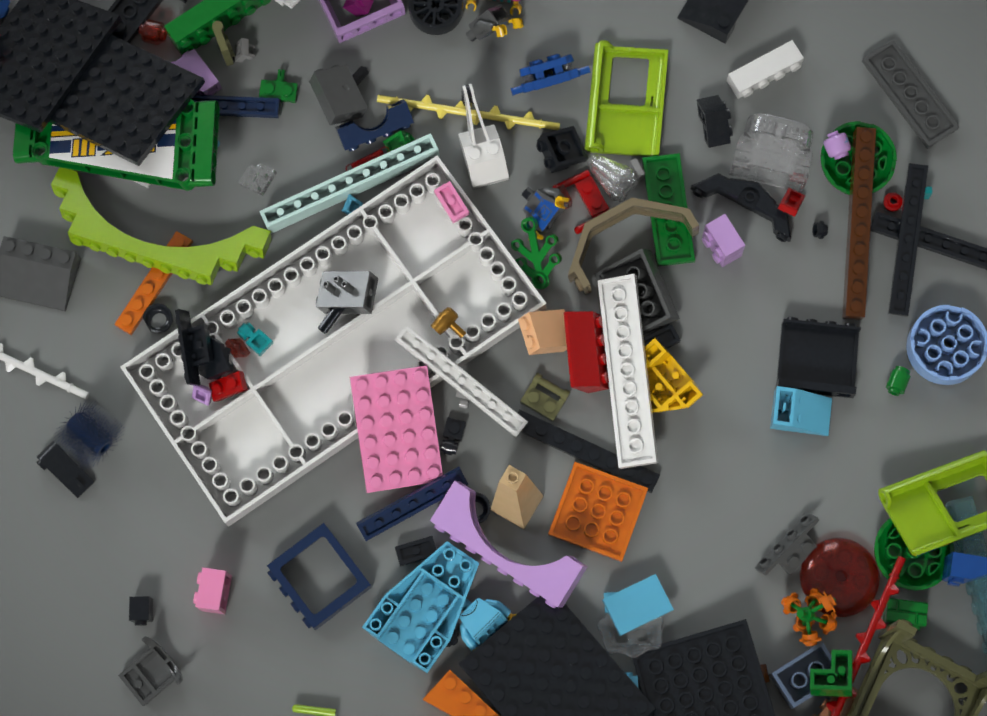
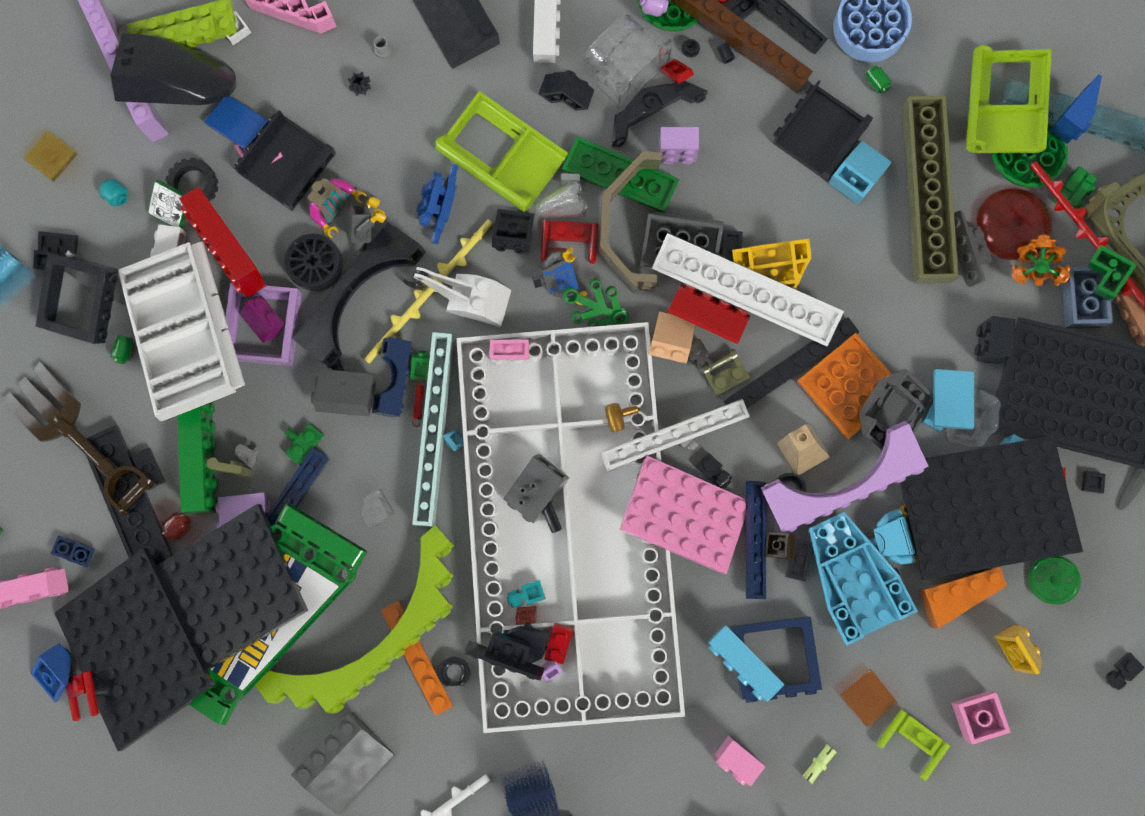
camera: 60 degrees left, 5 degrees up
(249, 665) = (819, 764): none -> yellowish green pin
(297, 547) = (745, 663): none -> medium azure brick
(330, 677) = (868, 698): none -> clear orange tile
(379, 46) = (320, 331): none -> black arch
(418, 525) = (779, 545): none -> dark brown piece
(546, 364) = (699, 355): none -> dark grey plate
(605, 553) = (892, 401): none -> dark grey slope
(714, 612) = (995, 340): none -> black brick
(819, 229) = (712, 64): black plate -> none
(821, 480) = (930, 190): none -> olive brick
(823, 198) = (690, 43): none -> black plate
(838, 235) = (725, 53): none -> black hinge

